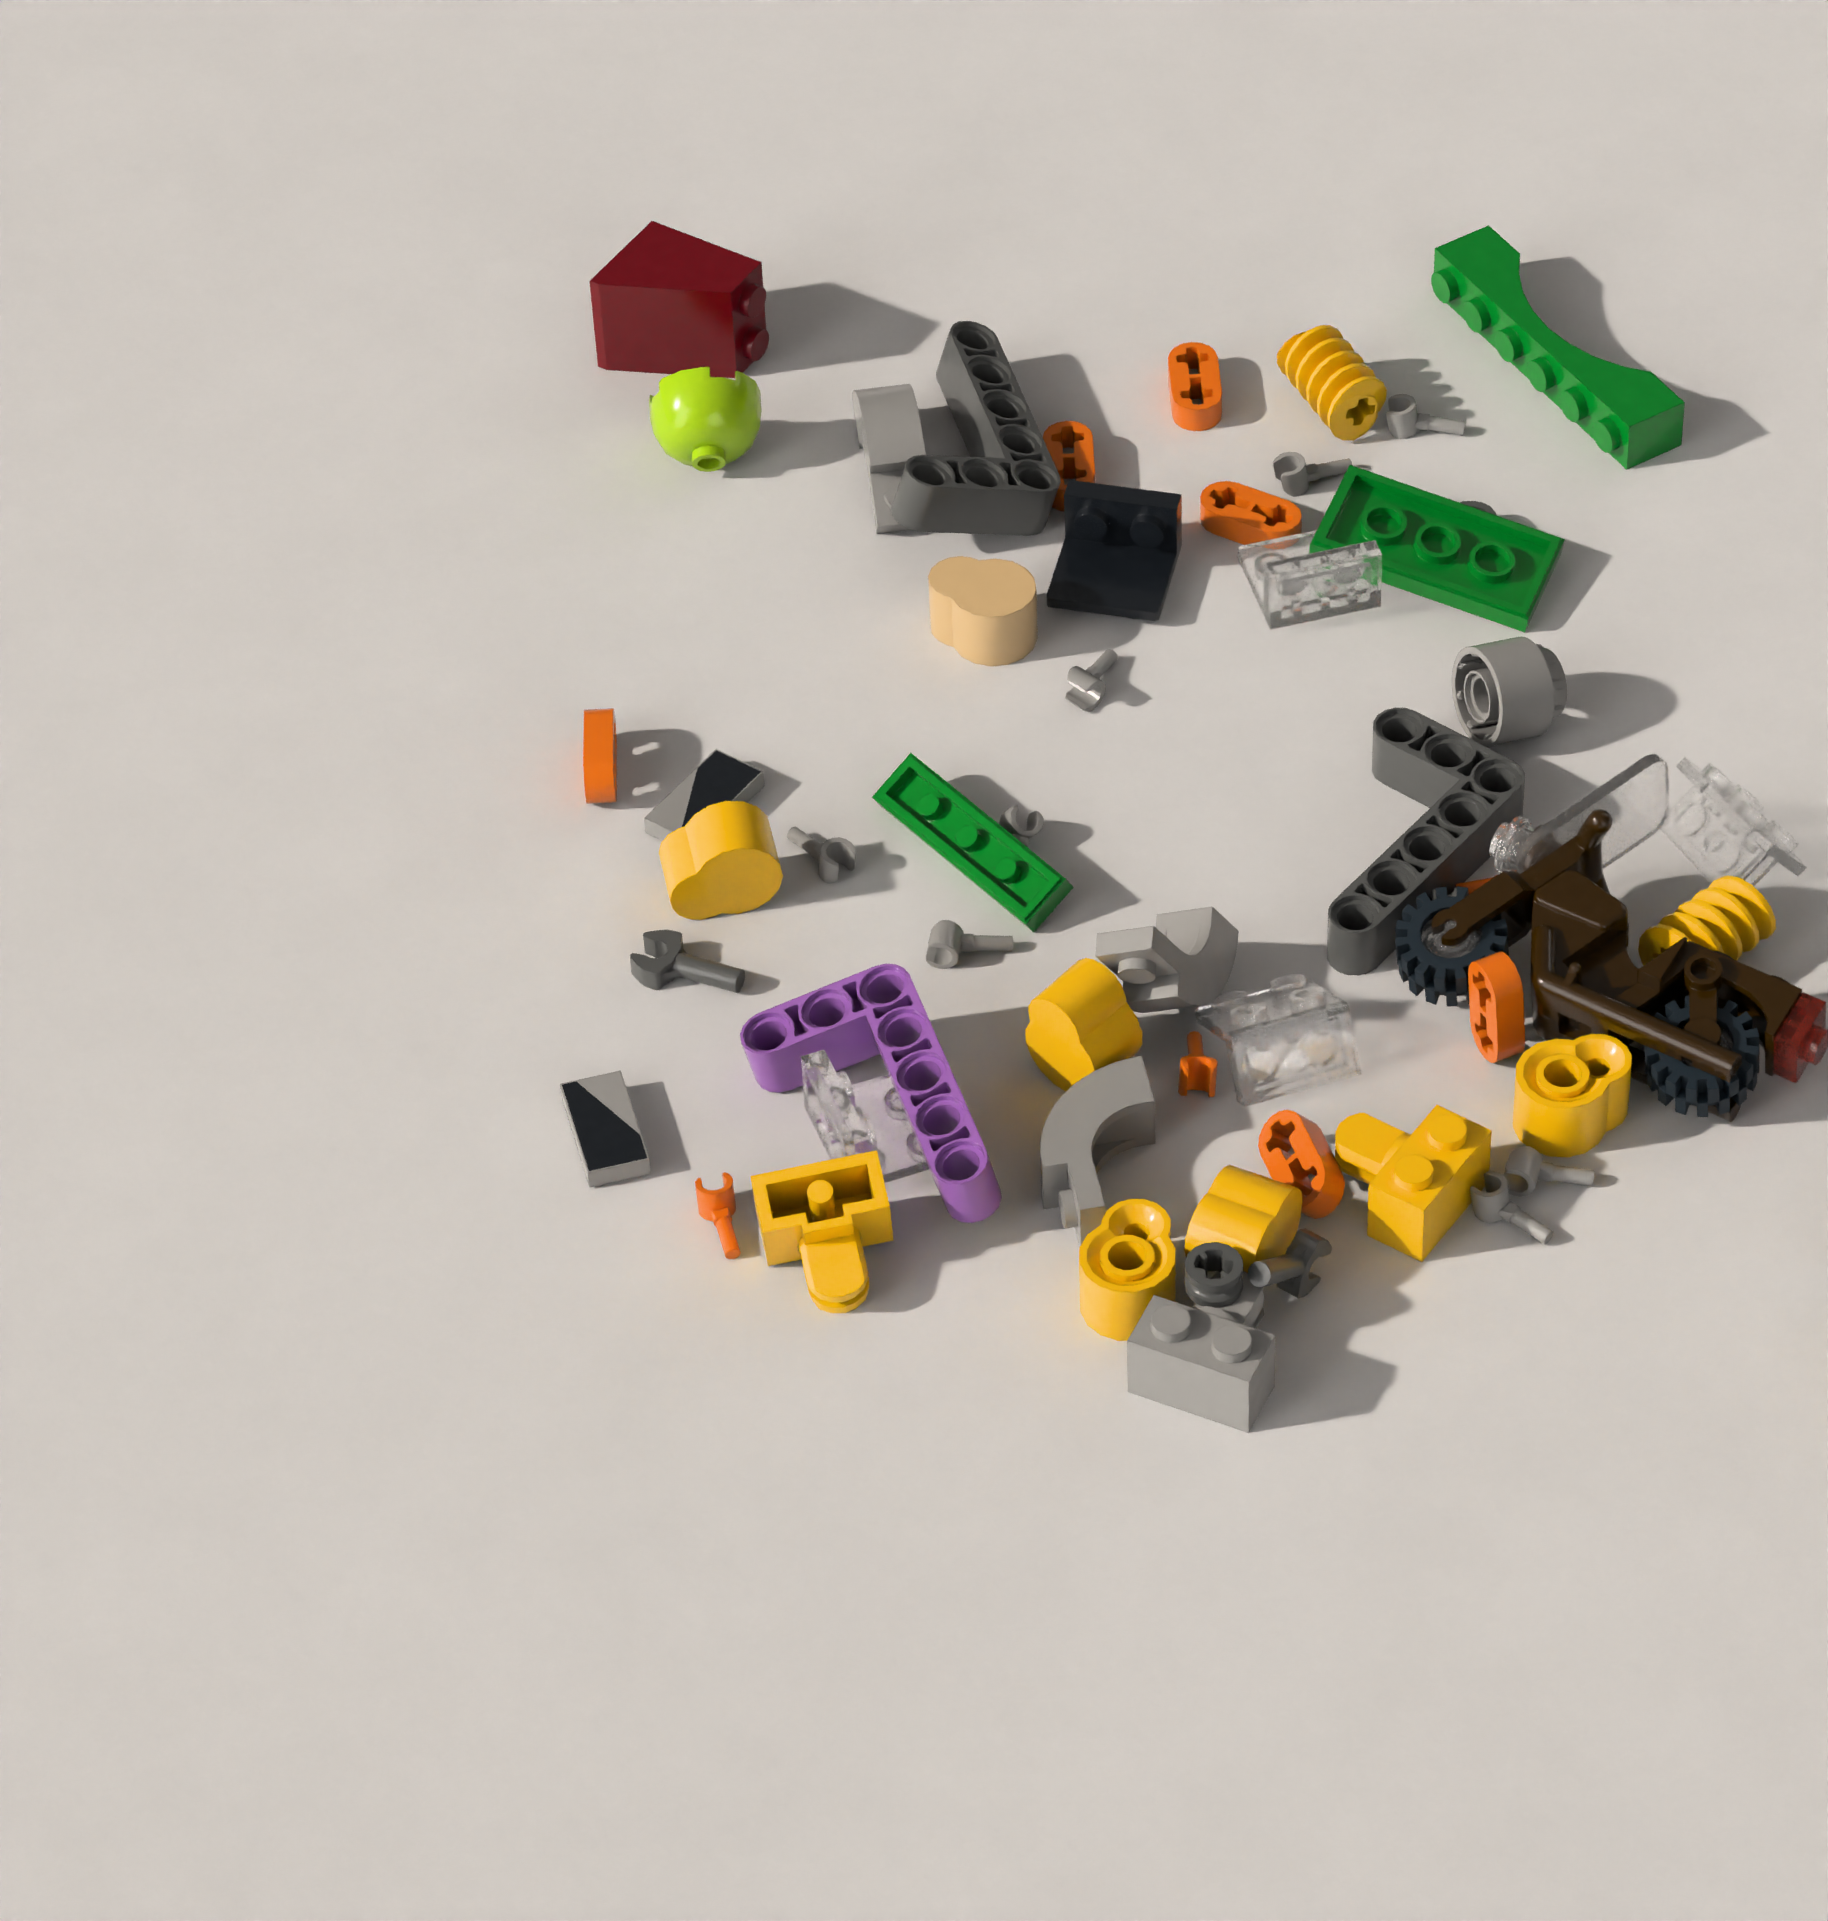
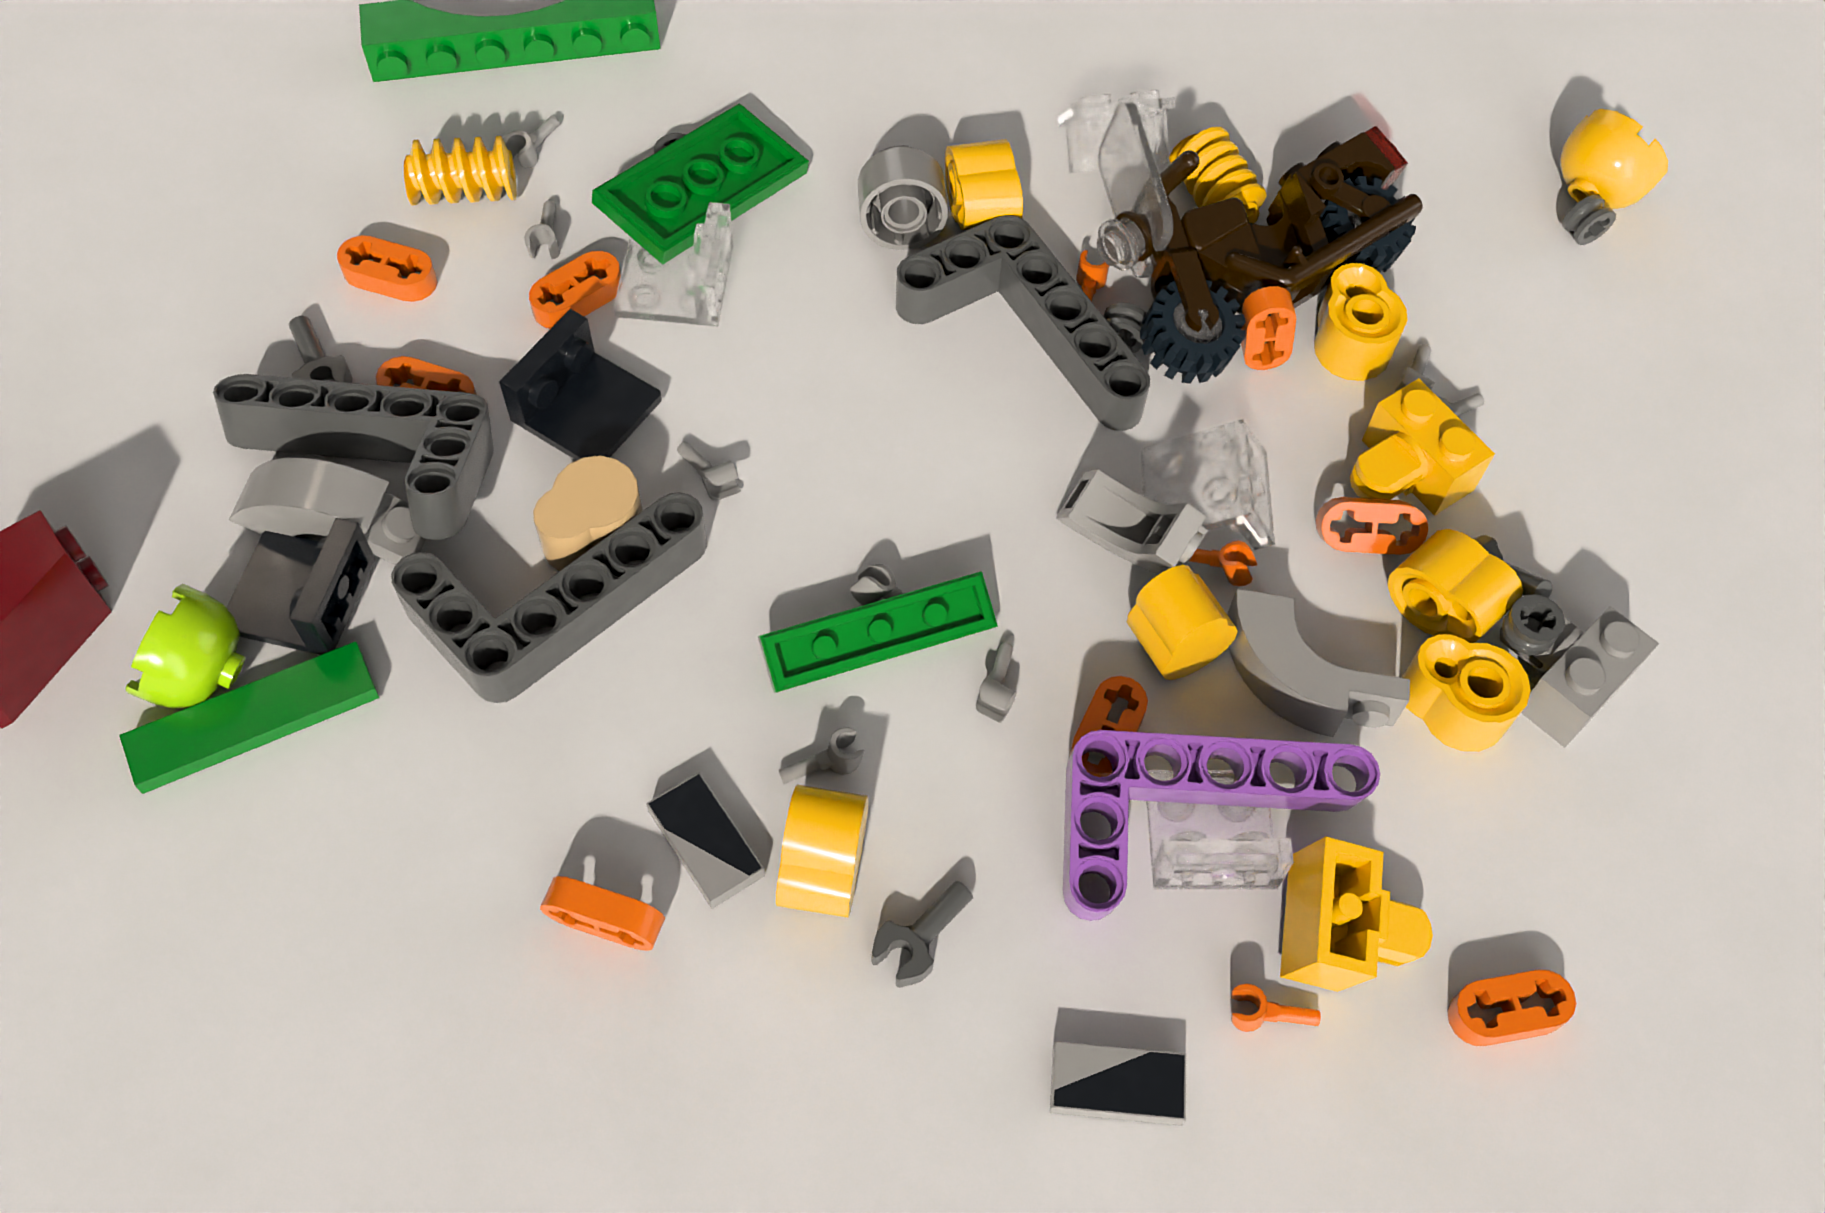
camera: 75 degrees left, 15 degrees up
(679, 493) = (248, 717): none -> green tile
(795, 1390) = (1508, 993): none -> orange beam
(810, 470) = (302, 588): none -> black bracket
(828, 615) = (553, 603): none -> dark grey beam
(960, 1029) = (1098, 712): none -> orange beam
(1055, 391) = (316, 365): none -> dark grey bar
(1562, 743) = (982, 182): none -> yellow piece

